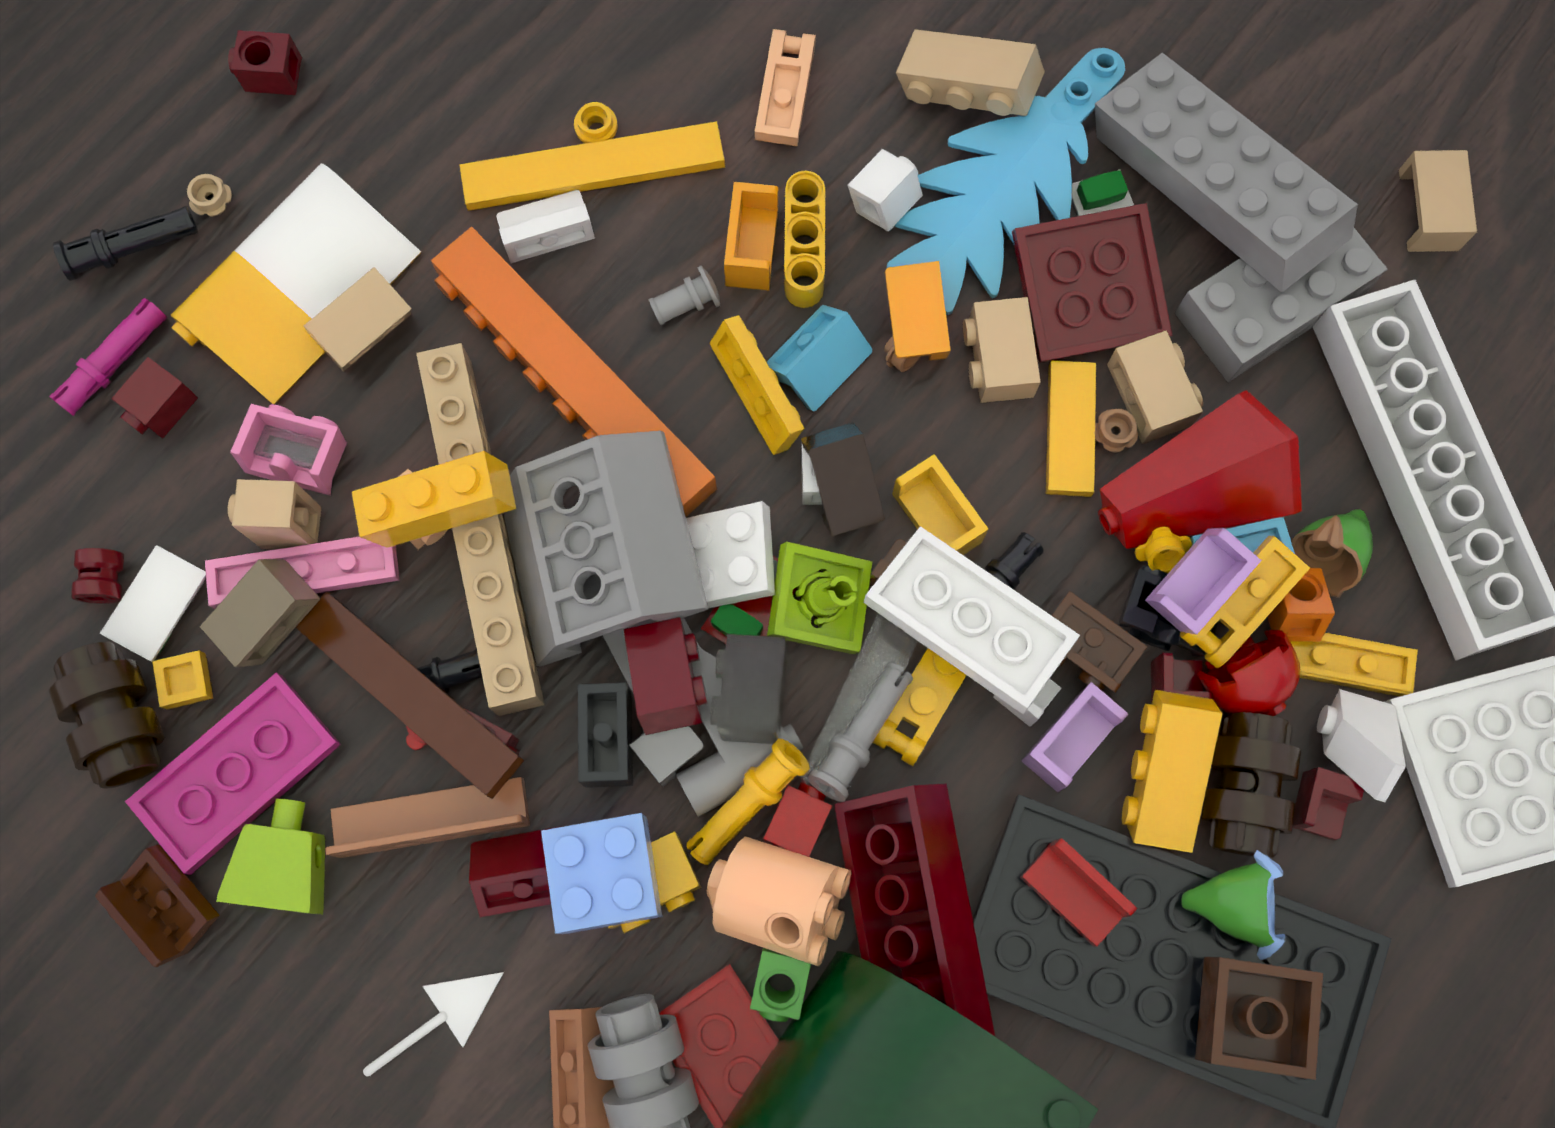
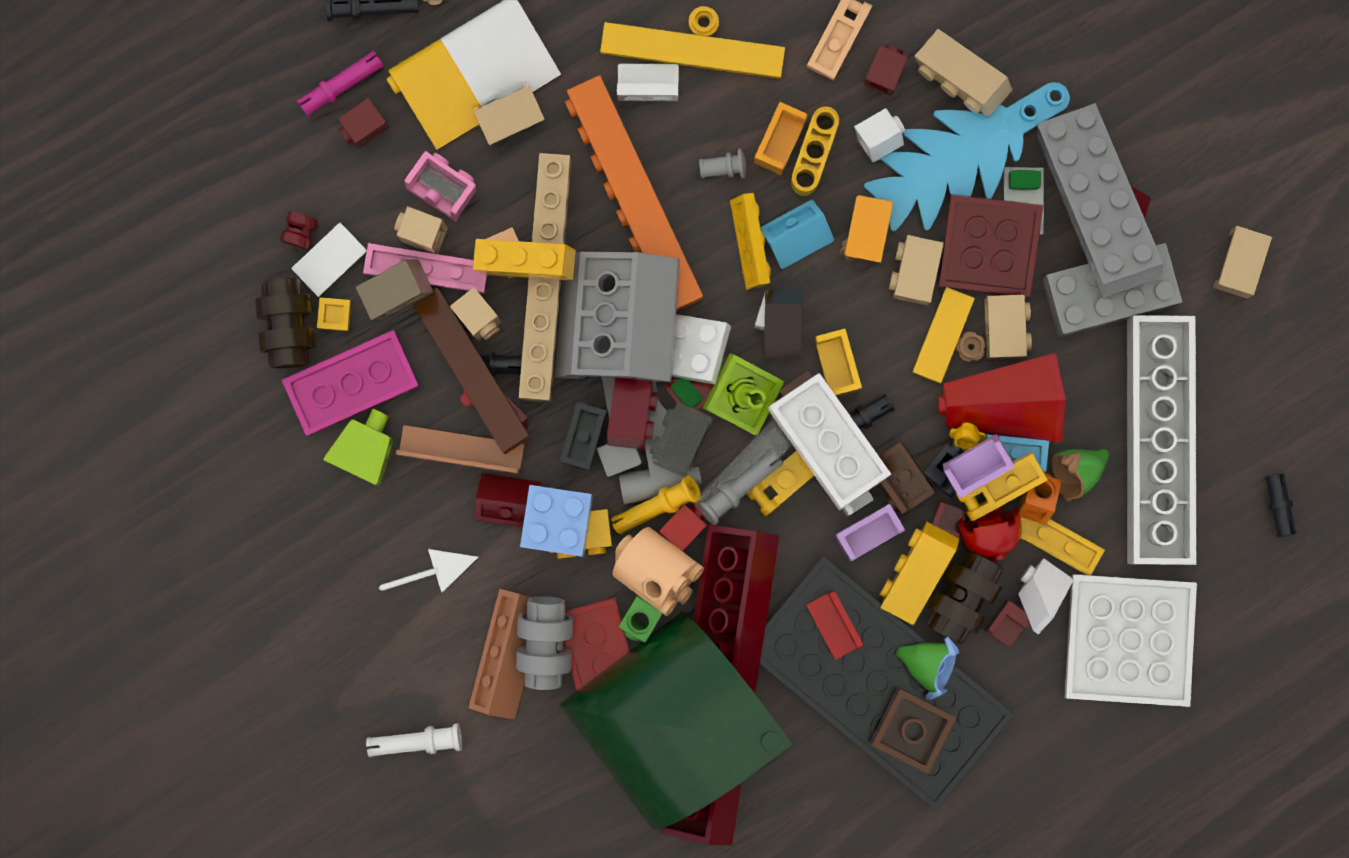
camera: 25 degrees right, 10 degrees up
(158, 907) = (285, 450): reddish brown bracket -> none
(391, 607) = (477, 315): none -> tan brick
(863, 107) = (886, 69): none -> dark red brick

